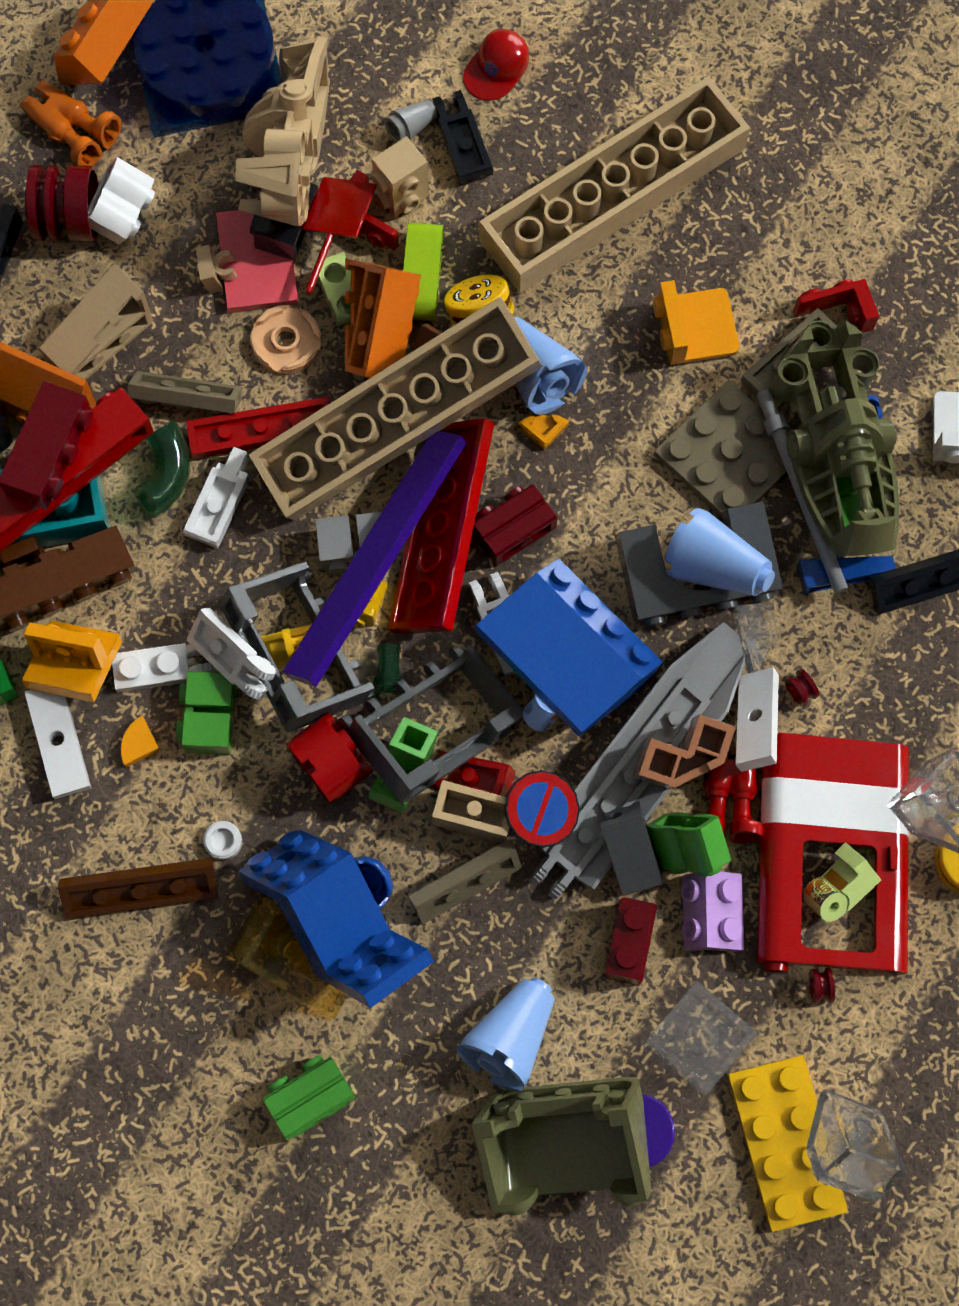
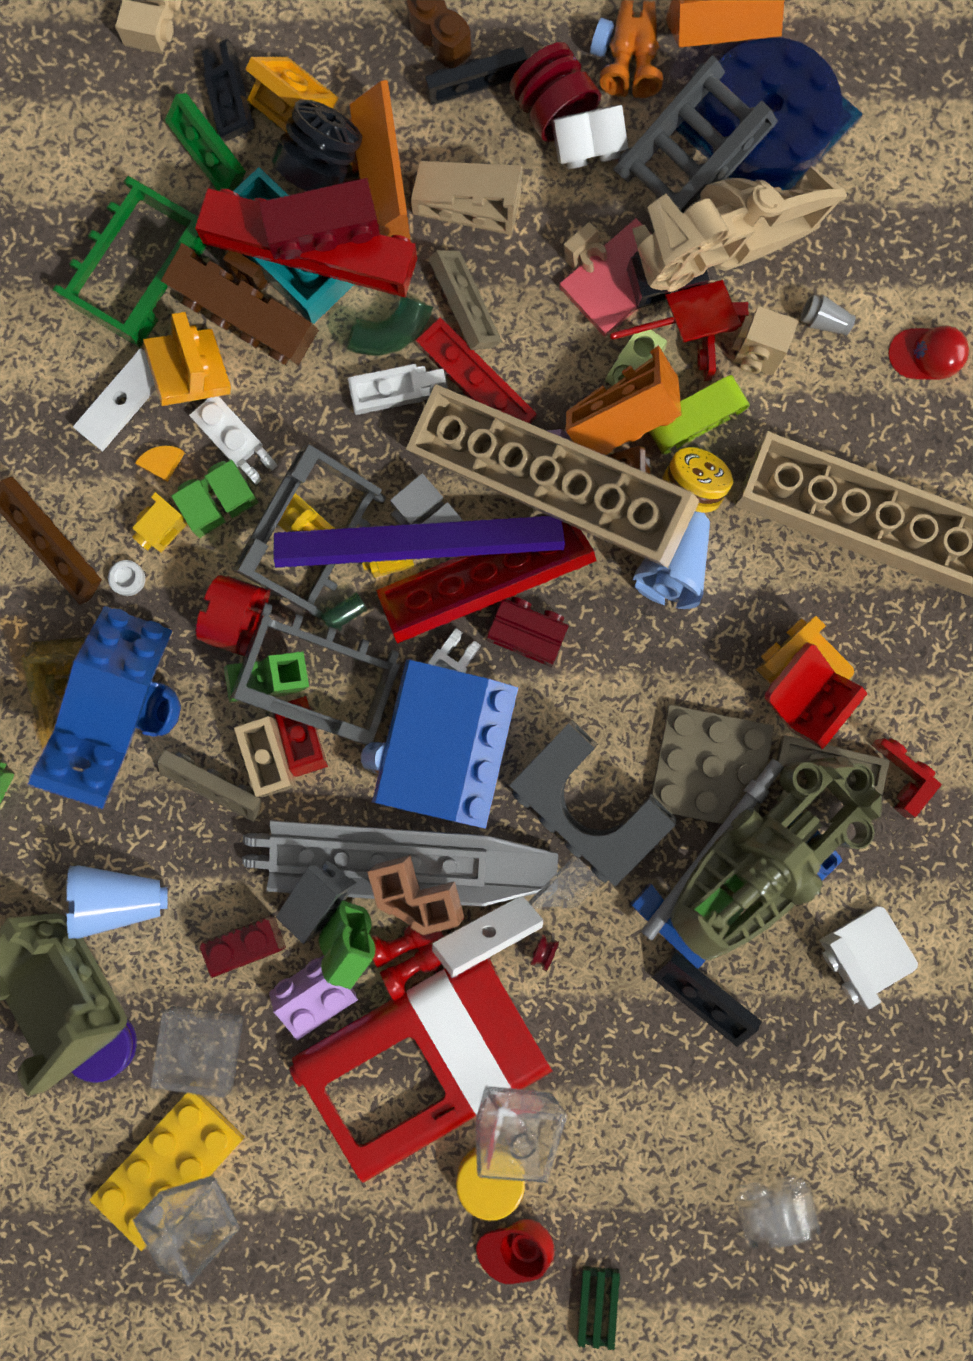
camera: 60 degrees right, 10 degrees up
(40, 139) = (601, 37): none -> light blue tile
(196, 777) = (158, 525): none -> yellow brick
(222, 100) = (728, 150): none -> dark grey fence
(230, 653) = (263, 484): white hinge -> none
(285, 358) = (560, 366): light nougat tile -> none
(463, 140) = (839, 370): black hinge -> none
(541, 809) = (296, 810): piece -> none
(543, 428) = (629, 602): light orange tile -> none
(717, 557) = (597, 818): light blue cone -> none
(728, 330) = (813, 697): none -> red bracket
(822, 985) = (306, 1121): dark red bush -> none
(841, 885) = (396, 1087): yellowish green leg -> none

